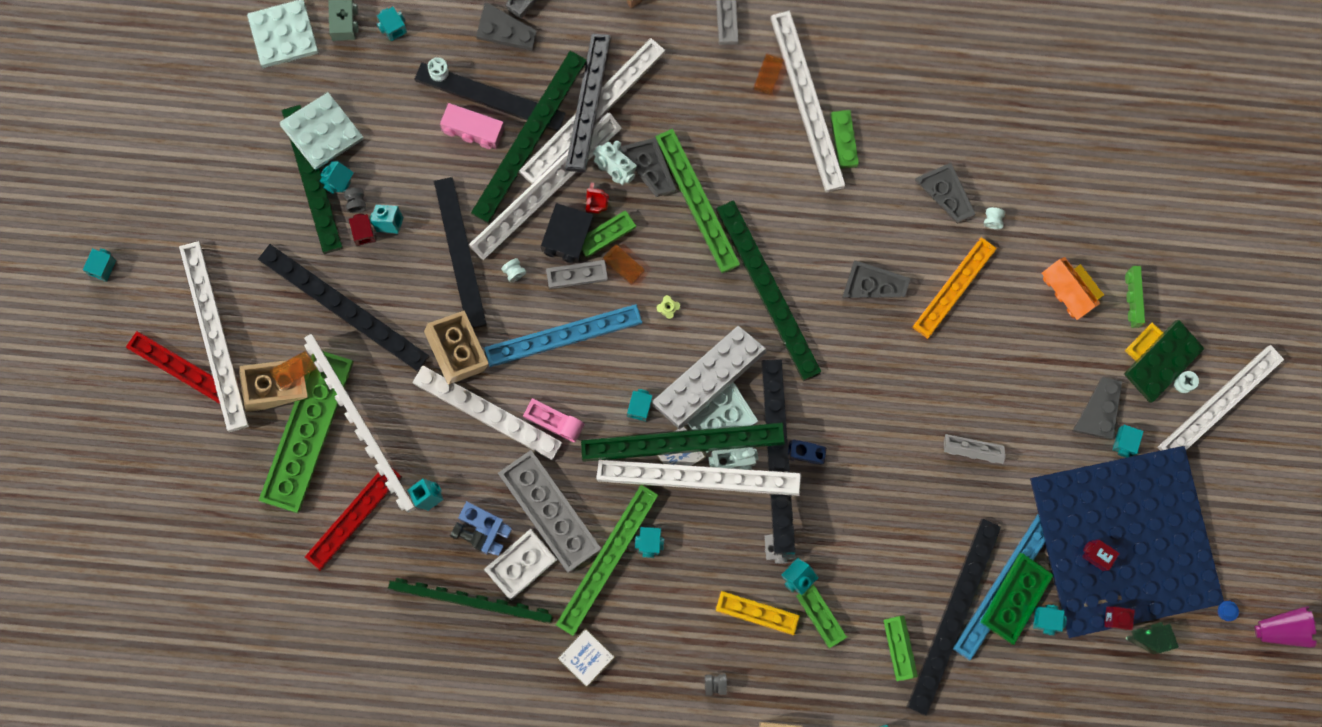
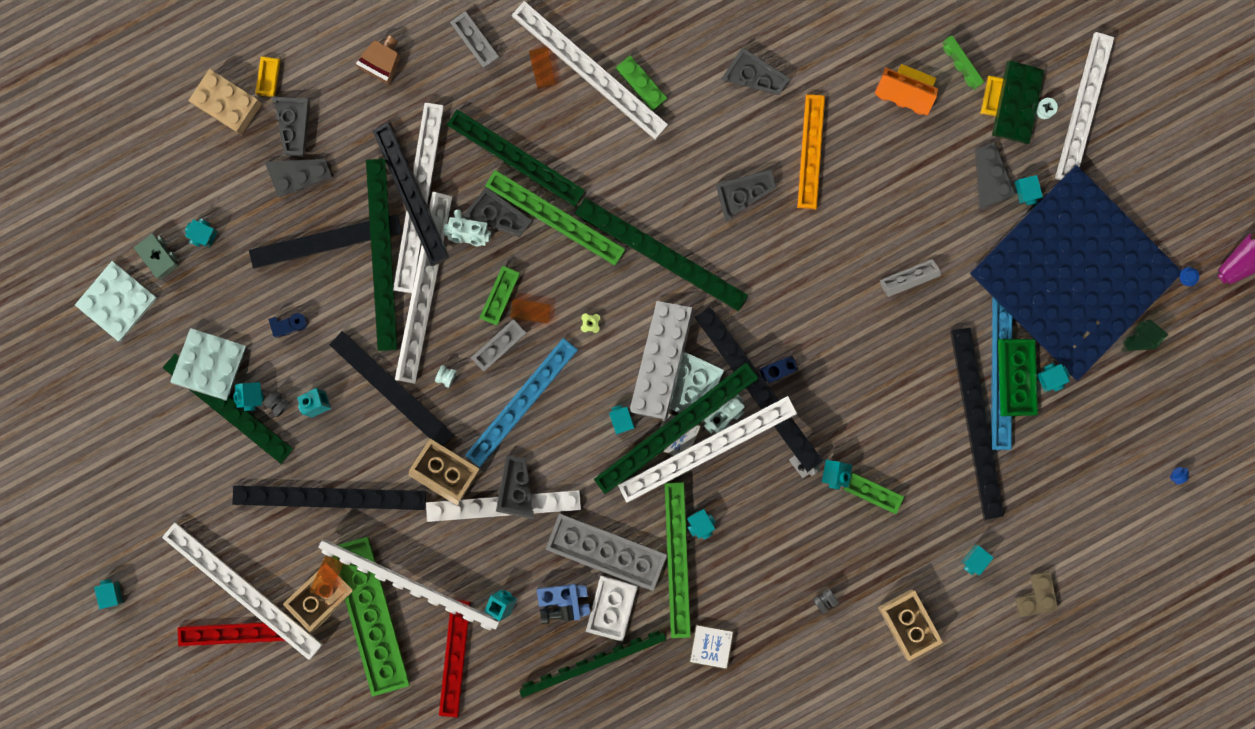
camera: 25 degrees left, 10 degrees up
(361, 229) = (299, 424): dark red brick -> none
(409, 143) = (291, 325): none -> dark blue leg
(437, 64) = (264, 246): light aqua wheel -> none
(472, 126) = (329, 278): bright pink brick -> none
(506, 403) = (514, 489): none -> dark grey wing
(553, 420) = (561, 477): bright pink plate -> none
(566, 233) = (467, 317): black panel -> none
(596, 200) = (473, 272): red piece -> none
(697, 132) = (516, 158): none -> dark green plate
(757, 613) = (821, 523): yellow tile -> none
(900, 648) = (951, 477): bright green plate -> none
(994, 218) = (807, 71): light aqua wheel -> none
(1100, 554) = (1062, 300): dark red brick -> none
(1119, 618) = (1108, 341): dark red brick -> none

